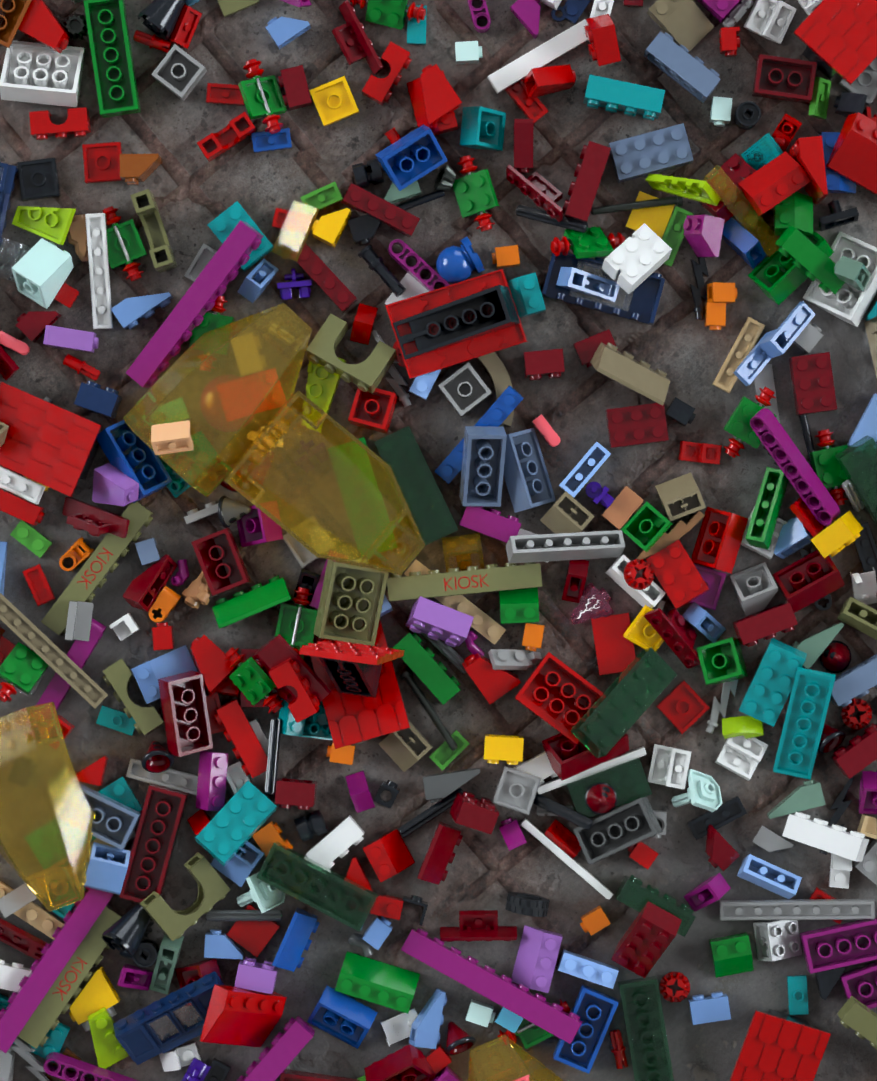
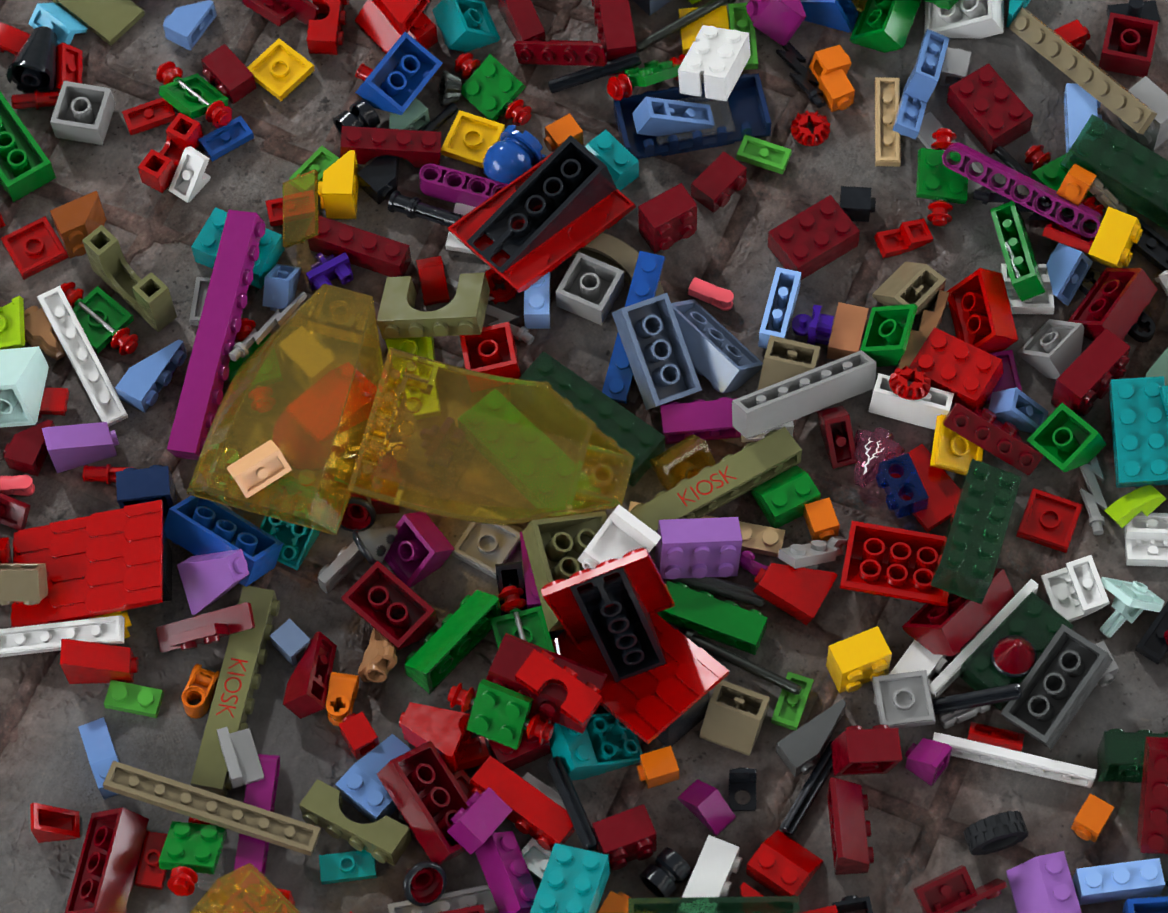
camera: 25 degrees left, 25 degrees down
(38, 585) = (168, 747): red plate -> none
(125, 626) = (303, 745): white panel -> none
(182, 575) = (348, 651): magenta arm -> none
(207, 742) = (479, 820): none -> magenta brick
(222, 319) = (241, 349): none -> light grey piece
(232, 160) = (190, 175): none -> white slope
(382, 605) = (616, 537): none -> white panel
(442, 227) = (471, 138): none -> yellow plate
(601, 640) = (907, 484): none -> clear blue brick
(630, 372) = (774, 181): dark tan slope -> none
(638, 340) = (763, 154): none -> bright green plate
(642, 854) = (1103, 709): red brick -> none
(674, 338) = (803, 134): none -> red gear
(832, 483) = (1076, 184): none -> orange brick

